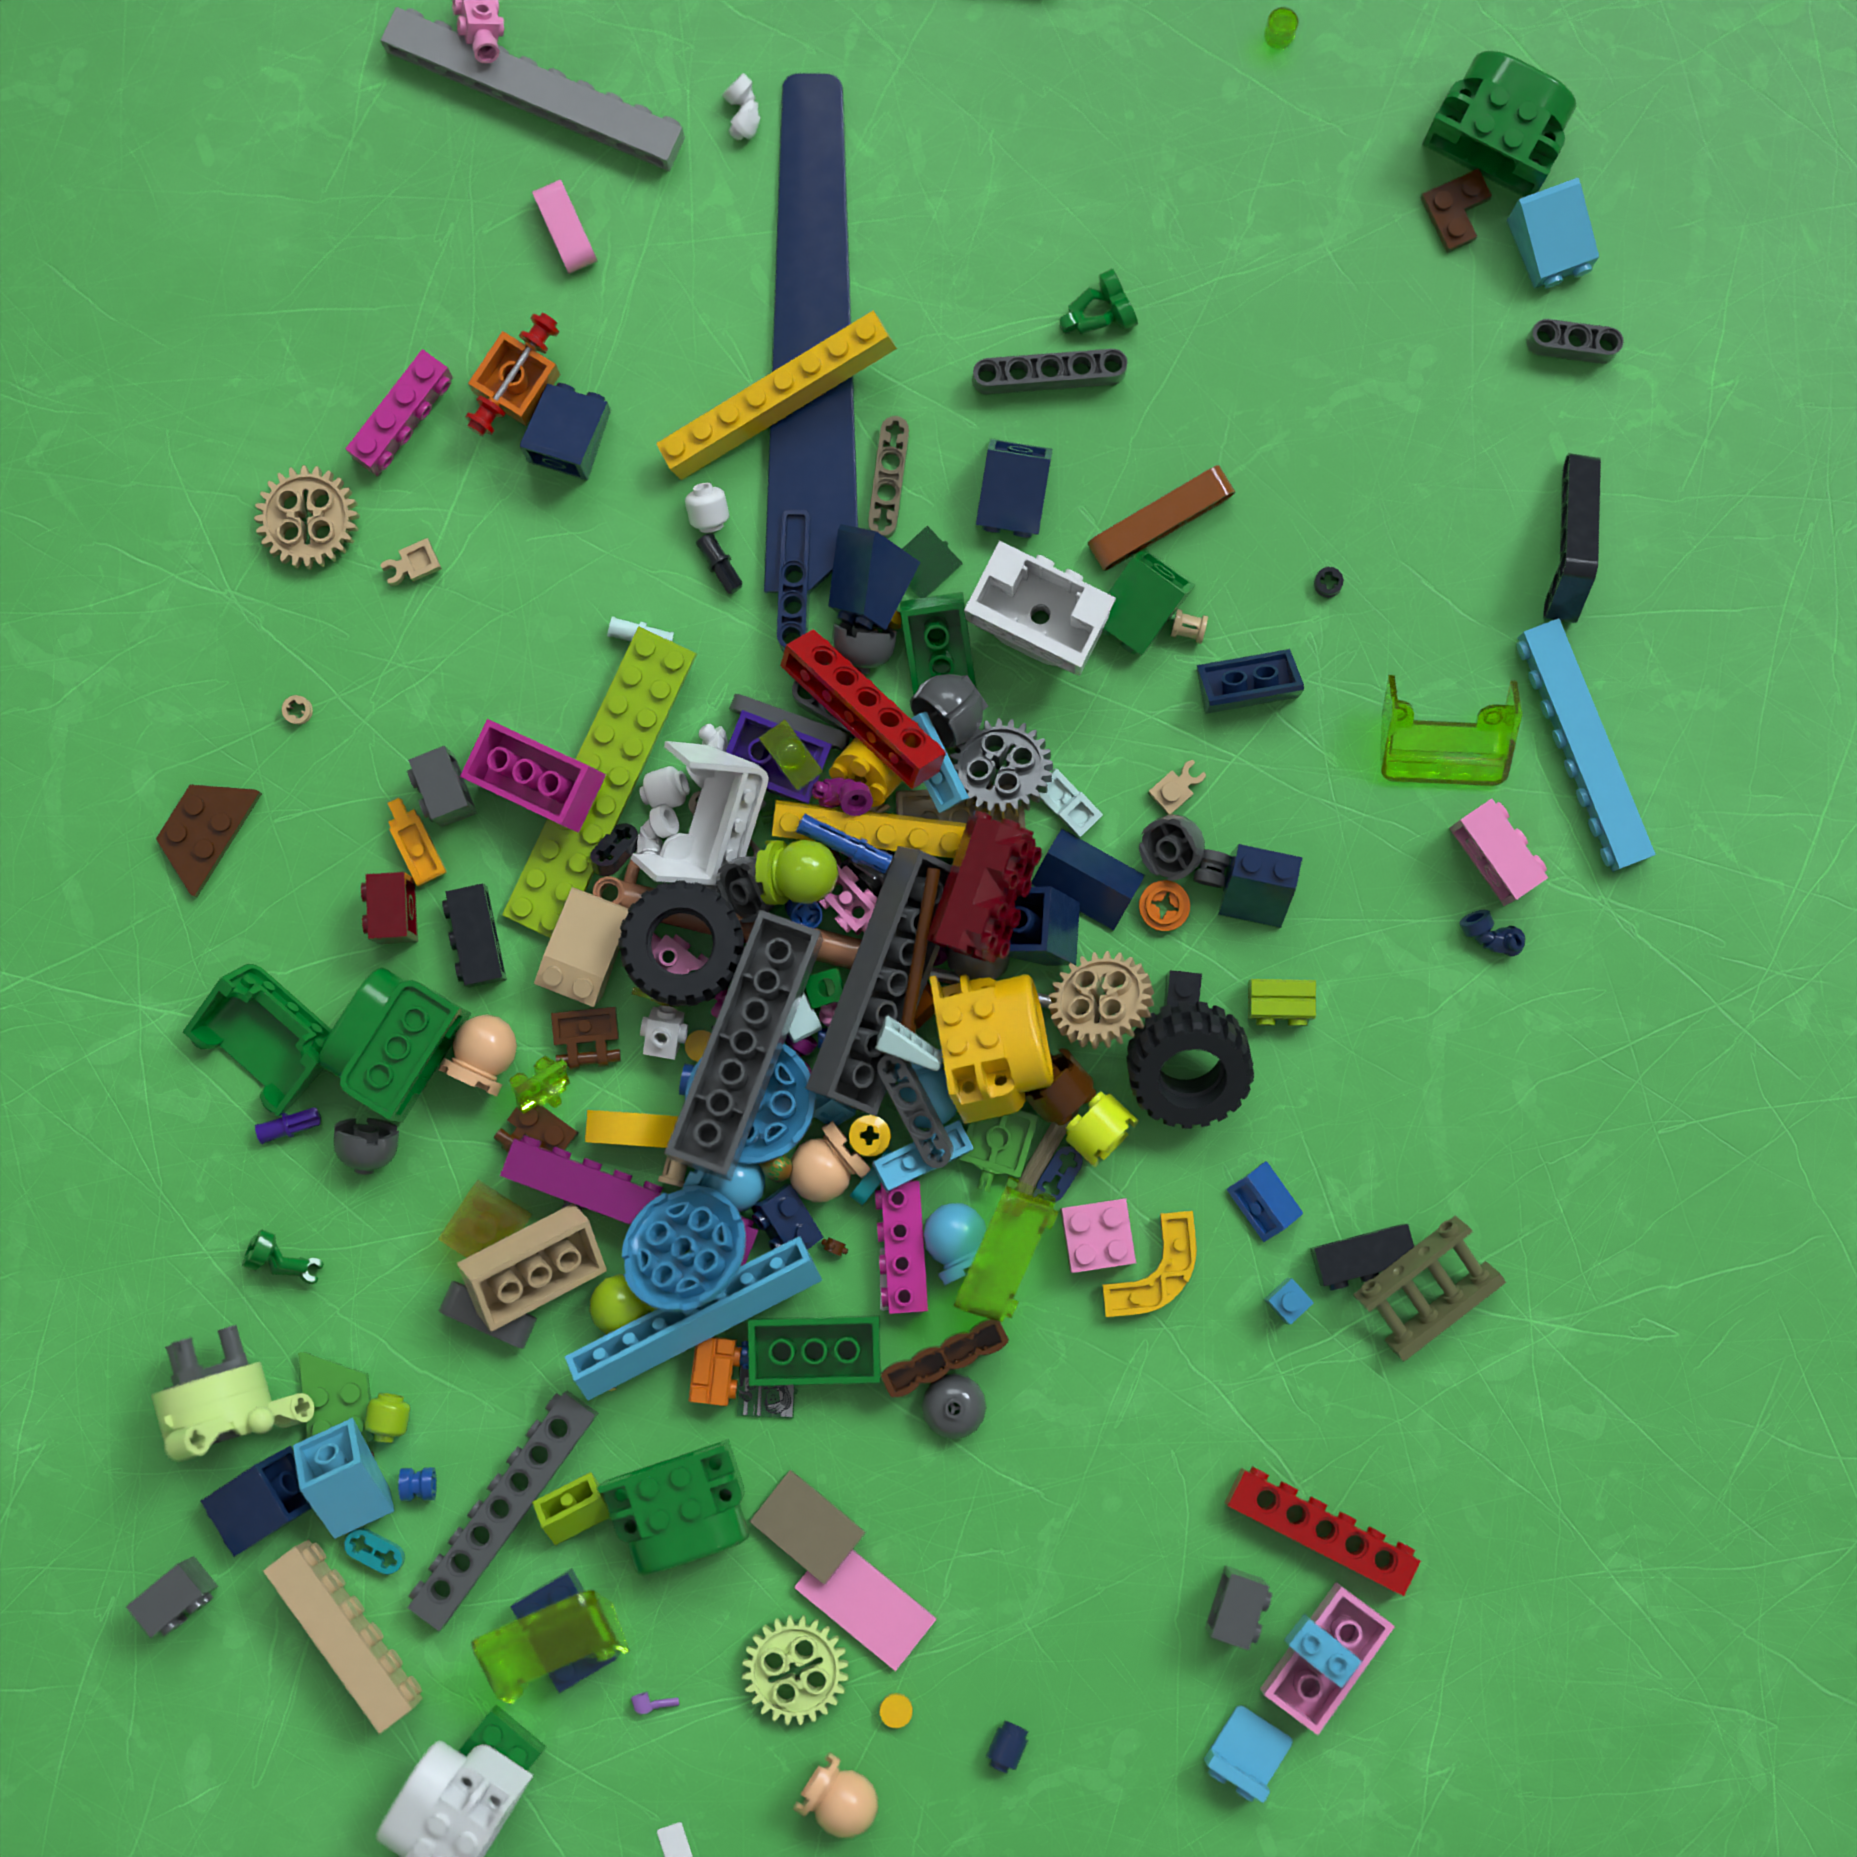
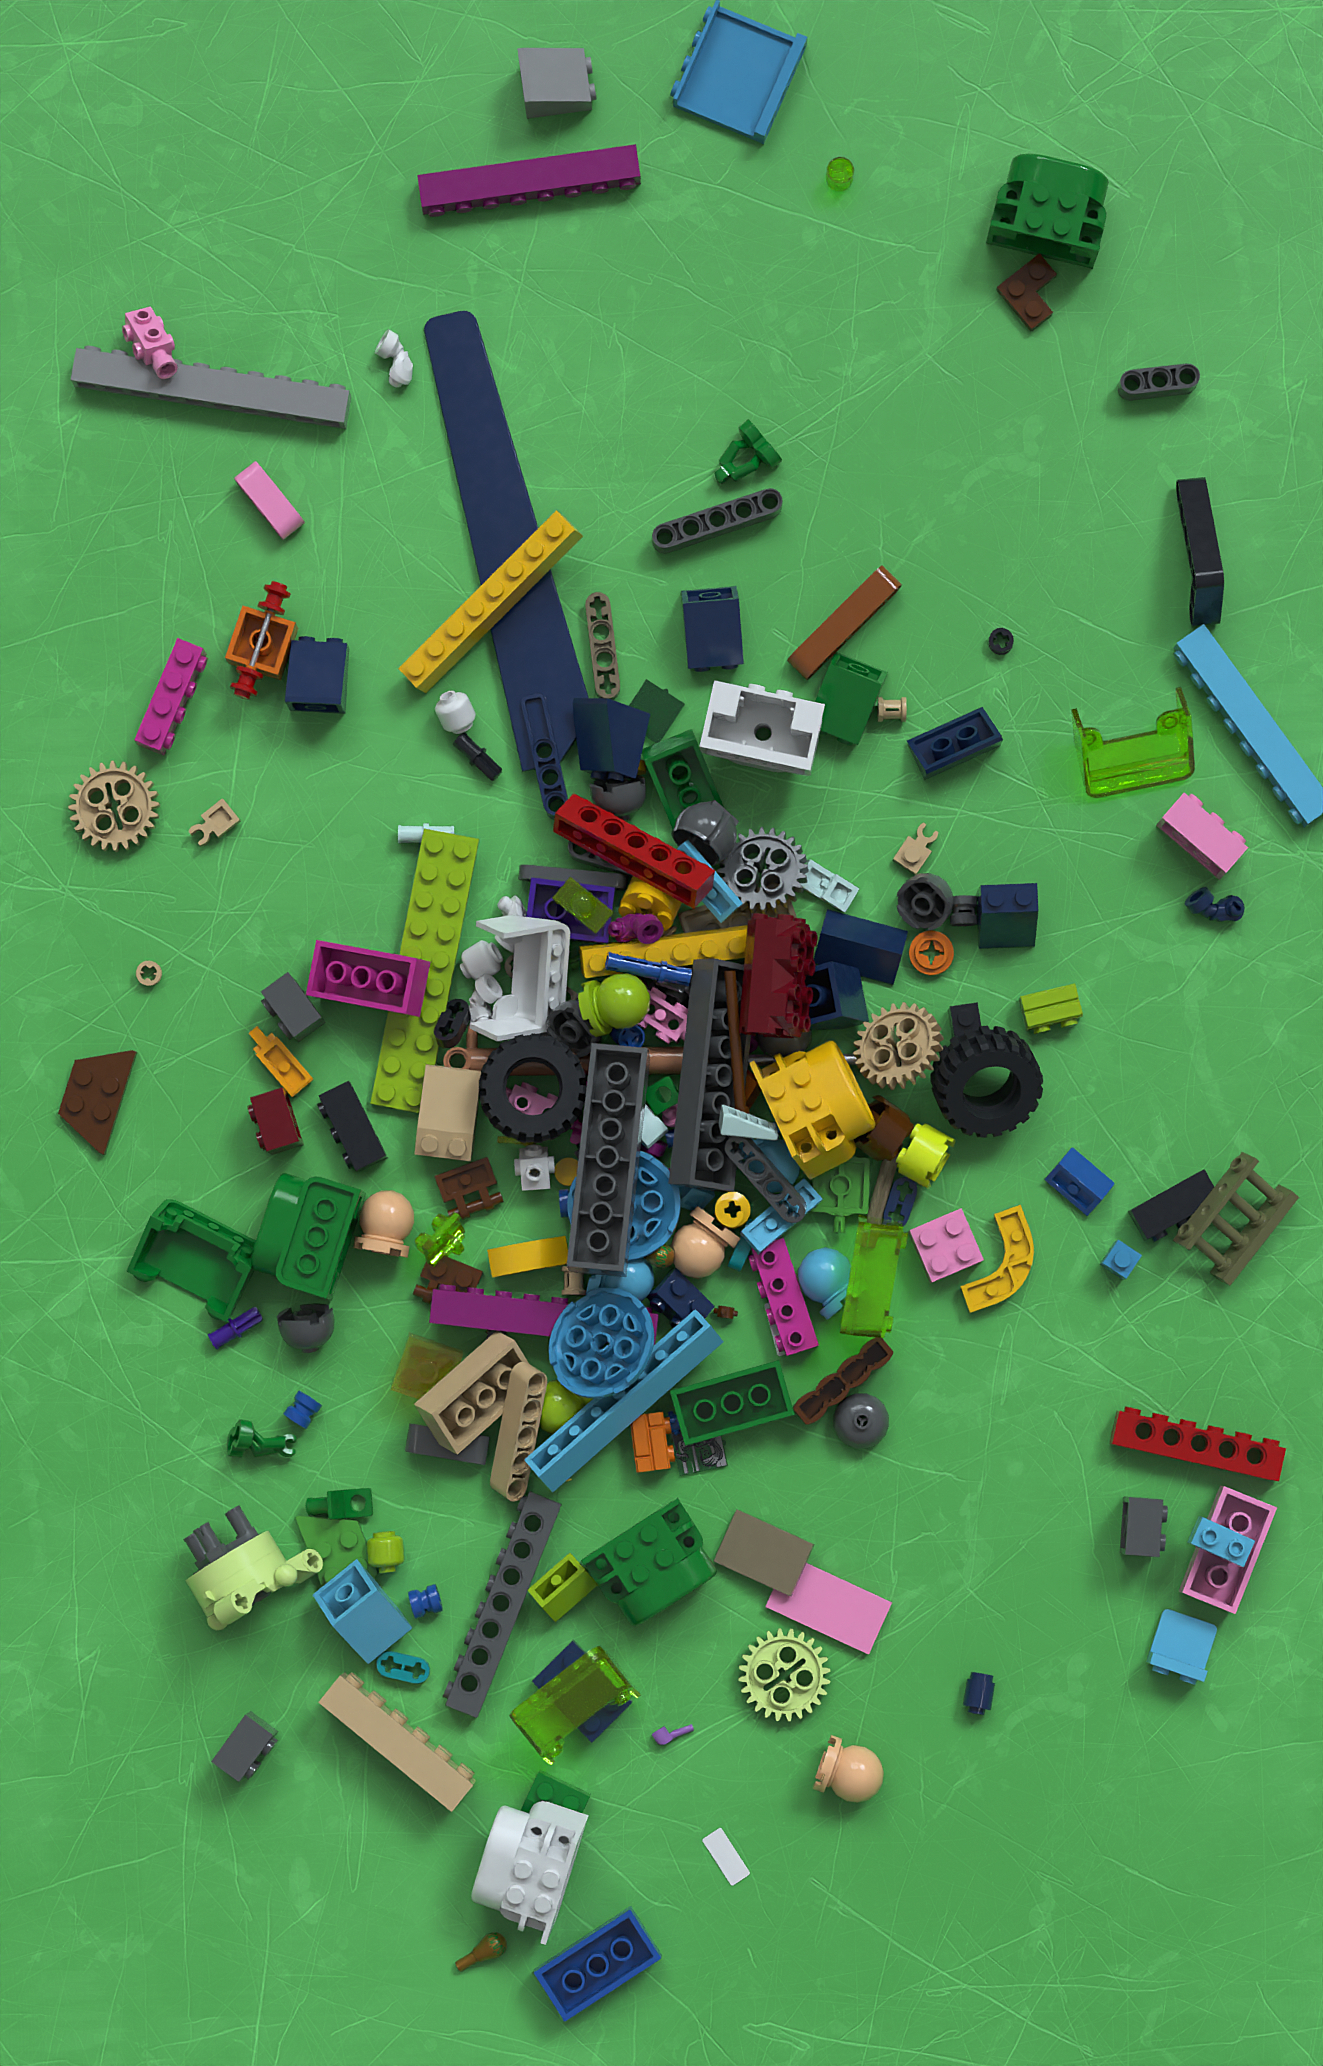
camera: 10 degrees left, 0 degrees up
(257, 1502) = (296, 1649): dark blue slope -> none
(340, 1232) = (302, 1409): none -> blue wheel
(350, 1351) = (339, 1504): none -> green bracket
(568, 1321) = (518, 1431): none -> tan beam
(896, 1710) = (877, 1687): yellow tile -> none
(1554, 234) = (1118, 295): medium azure slope -> none

